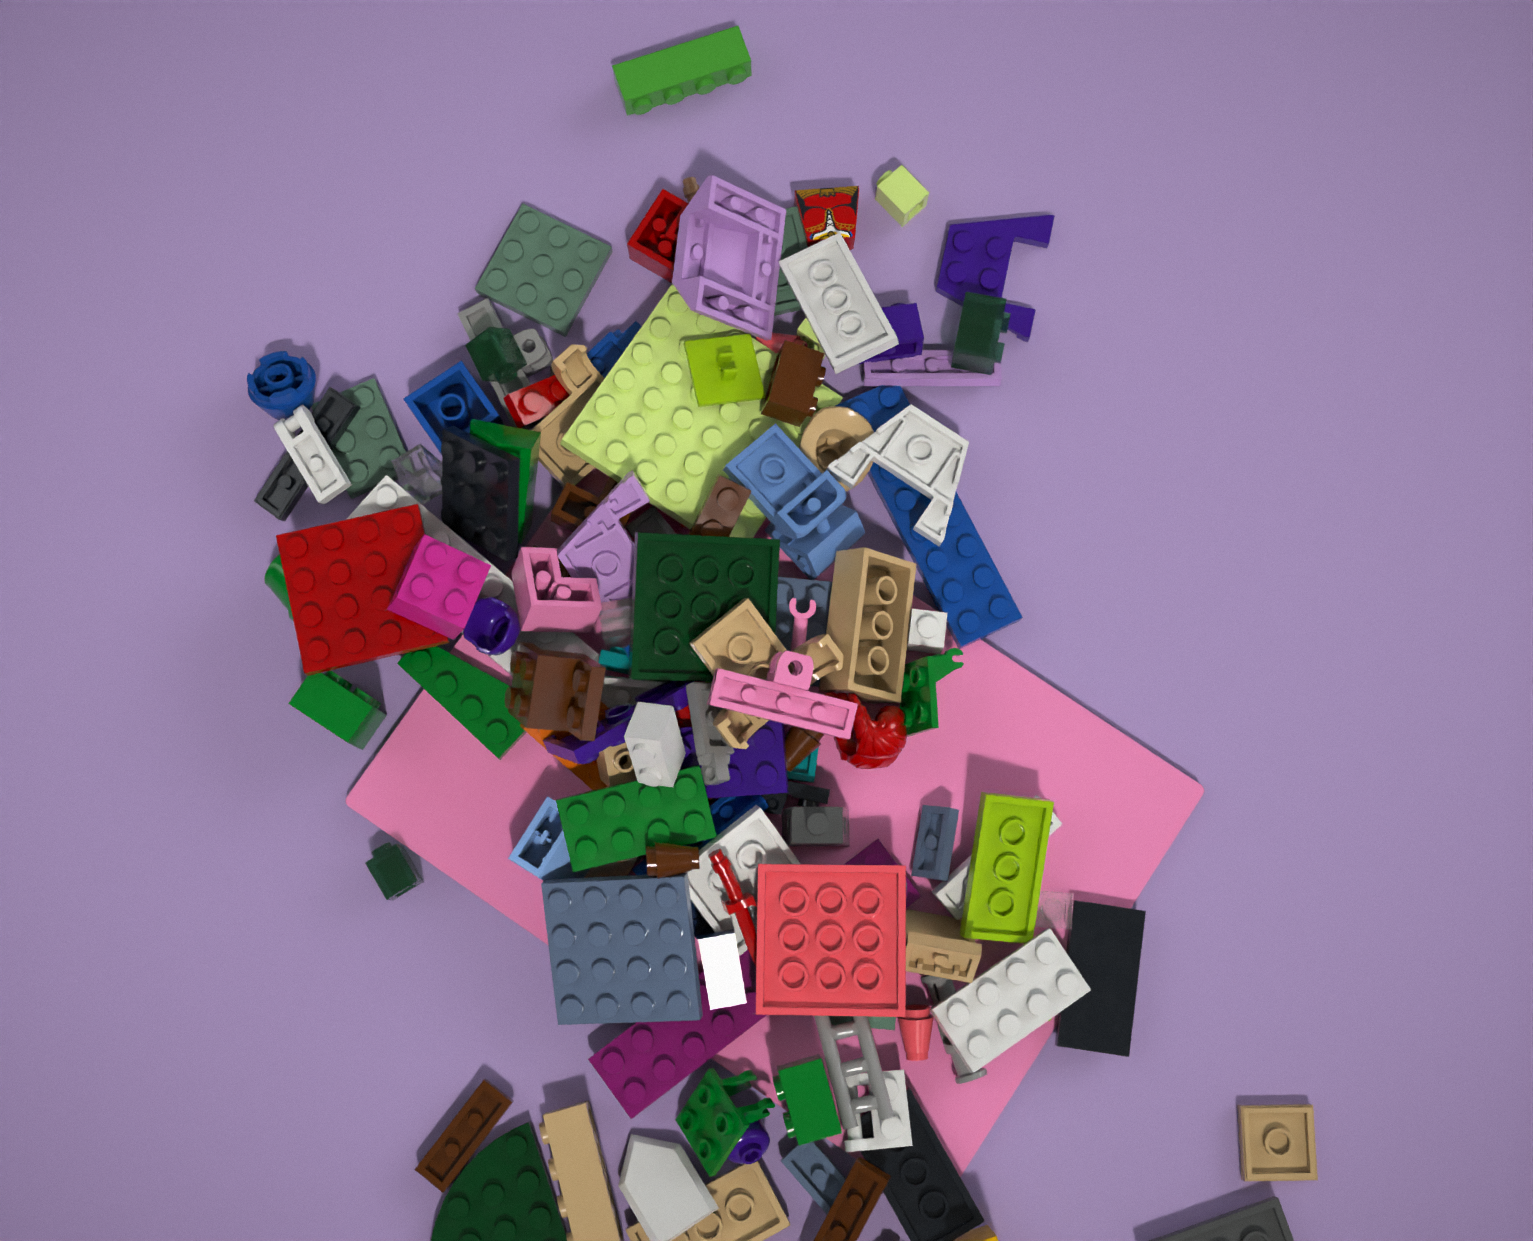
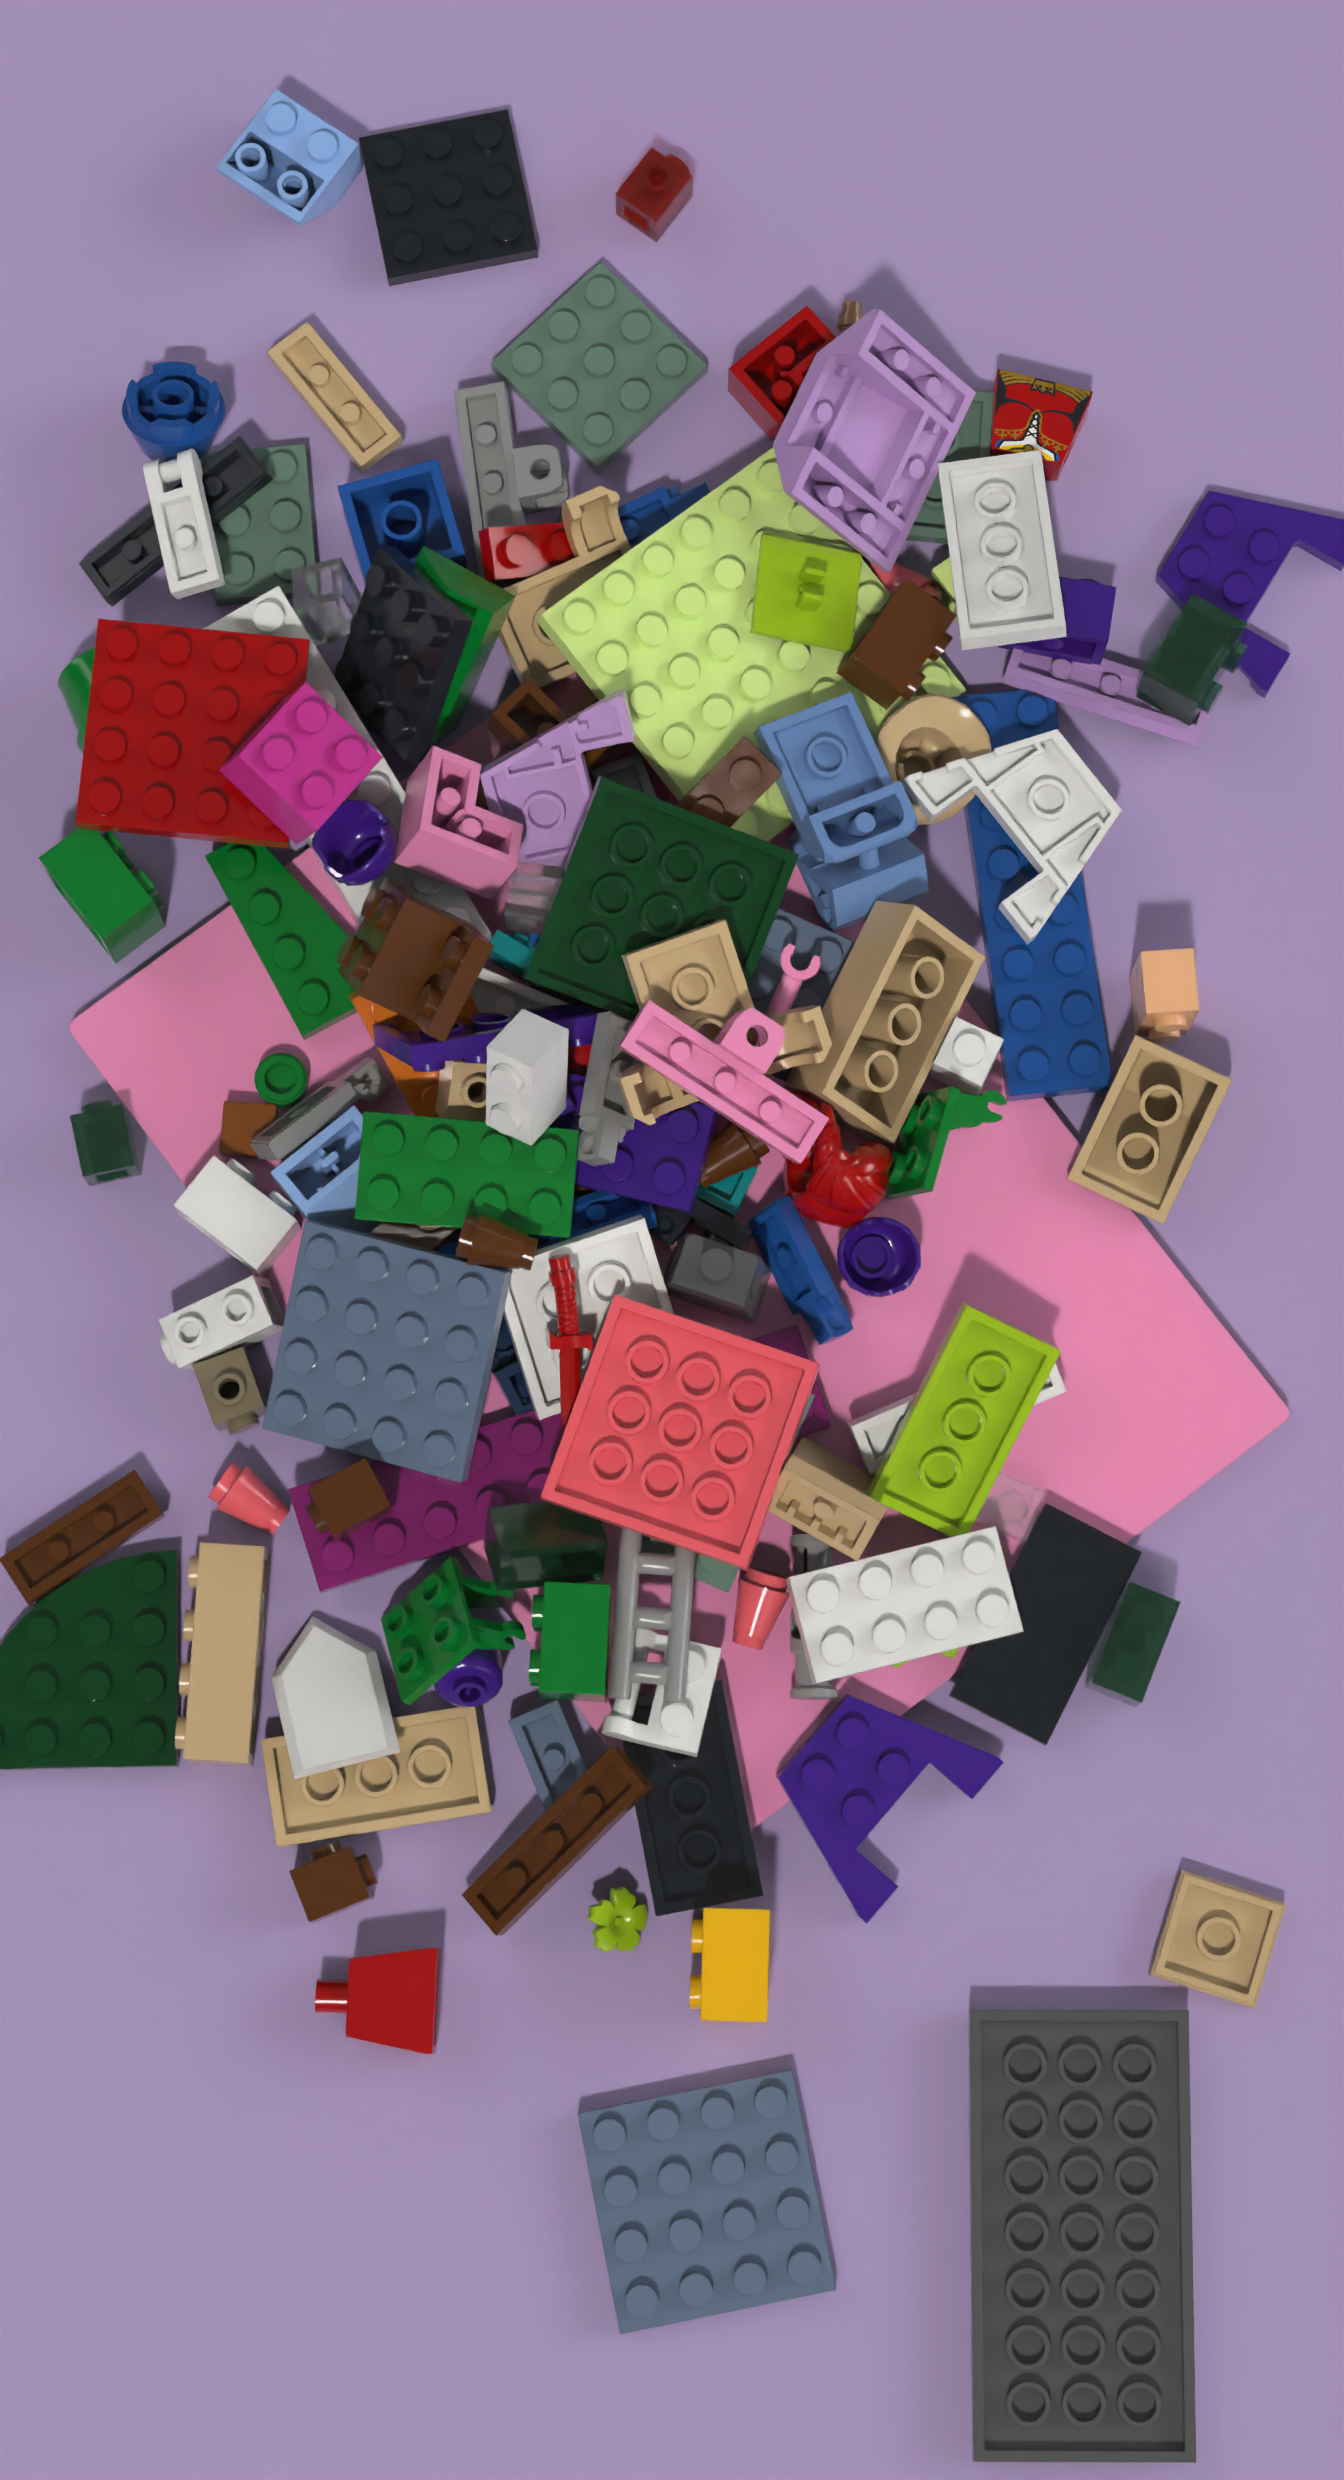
camera: 20 degrees right, 0 degrees up
(306, 201) = (292, 160): none -> light blue slope
(383, 342) = (335, 397): none -> tan plate
(413, 194) = (448, 197): none -> black plate
(484, 831) = (241, 1123): none -> dark orange tile
(494, 791) = (281, 1080): none -> green tile
(496, 355) = (489, 467): clear green brick -> none
(496, 890) = (239, 1215): none -> white brick
(508, 964) = (221, 1322): none -> white brick
(525, 805) = (319, 1110): none -> light grey hinge
(529, 1005) = (231, 1391): none -> dark tan brick
(542, 150) = (654, 193): none -> clear red brick
(564, 1072) = (248, 1499): none -> coral cone
(630, 1057) = (348, 1501): none -> reddish brown brick
(682, 71) = (896, 143): bright green brick -> none
(722, 969) = (515, 1425): tile -> none
(766, 1043) = (542, 1545): none -> clear green brick
(868, 803) = (800, 1270): none -> blue hinge
(901, 195) = (1152, 425): yellowish green brick -> none
(915, 778) = (878, 1256): none -> dark purple hair
(935, 842) = (876, 1356): sand blue plate -> none
(1014, 1117) = (853, 1776): none -> dark purple wing
(1035, 549) = (1164, 994): none -> light nougat brick
(1055, 637) = (1149, 1129): none -> tan slope
(1160, 972) = (1132, 1644): none -> clear green brick

